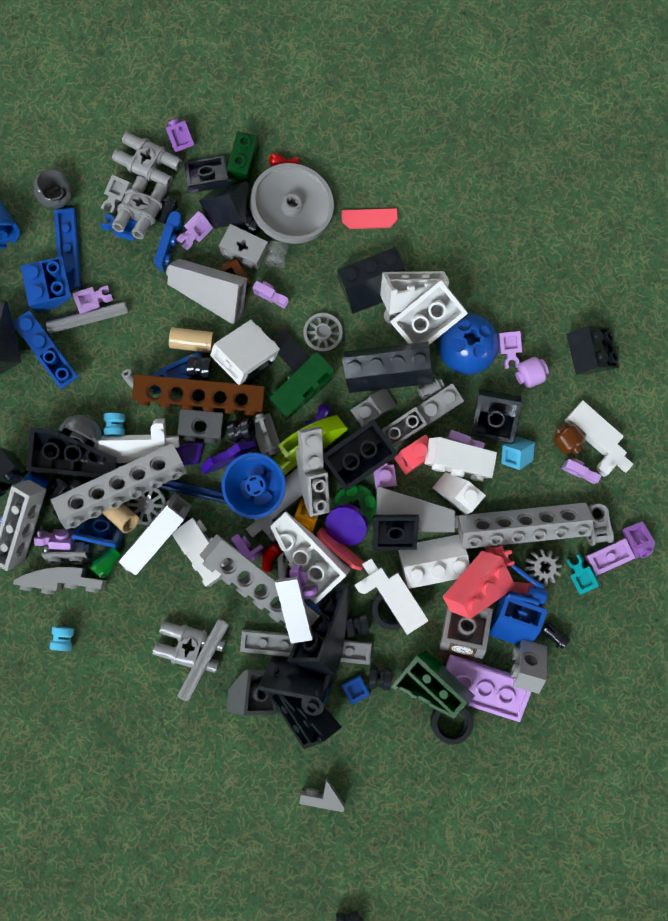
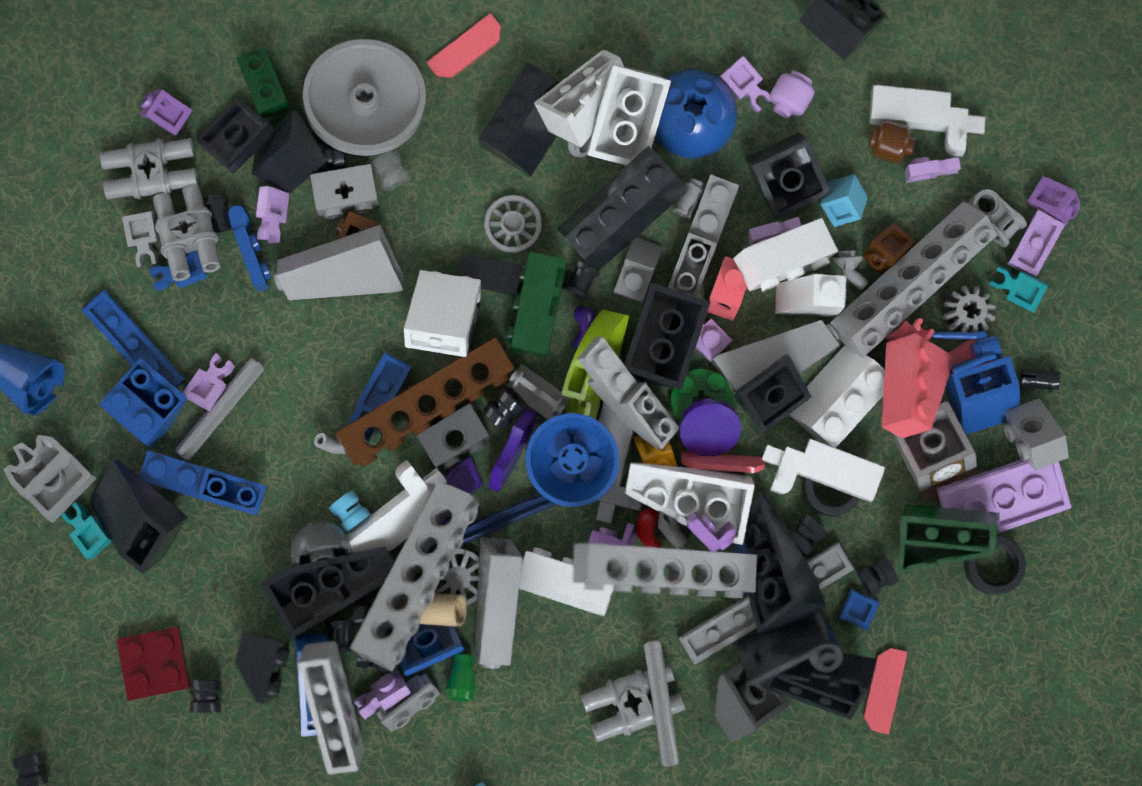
camera: 35 degrees left, 0 degrees up
(52, 189) = (63, 286): dark grey hair -> none
(52, 580) = (413, 742): light grey slope -> none
(191, 340) = (366, 345): tan pin -> none
(199, 367) = (402, 369): black wheel -> none
(268, 293) = (412, 224): lavender plate -> none
(276, 159) = (306, 58): red arm -> none
(294, 609) = (725, 566): tile -> none
(327, 800) = (920, 755): light grey slope -> none
(336, 390) = (581, 280): none -> black bush
(336, 746) = (884, 690): none -> coral piece
(494, 488) = (847, 262): none -> light grey plate
(523, 498) = (888, 248): none -> reddish brown bracket

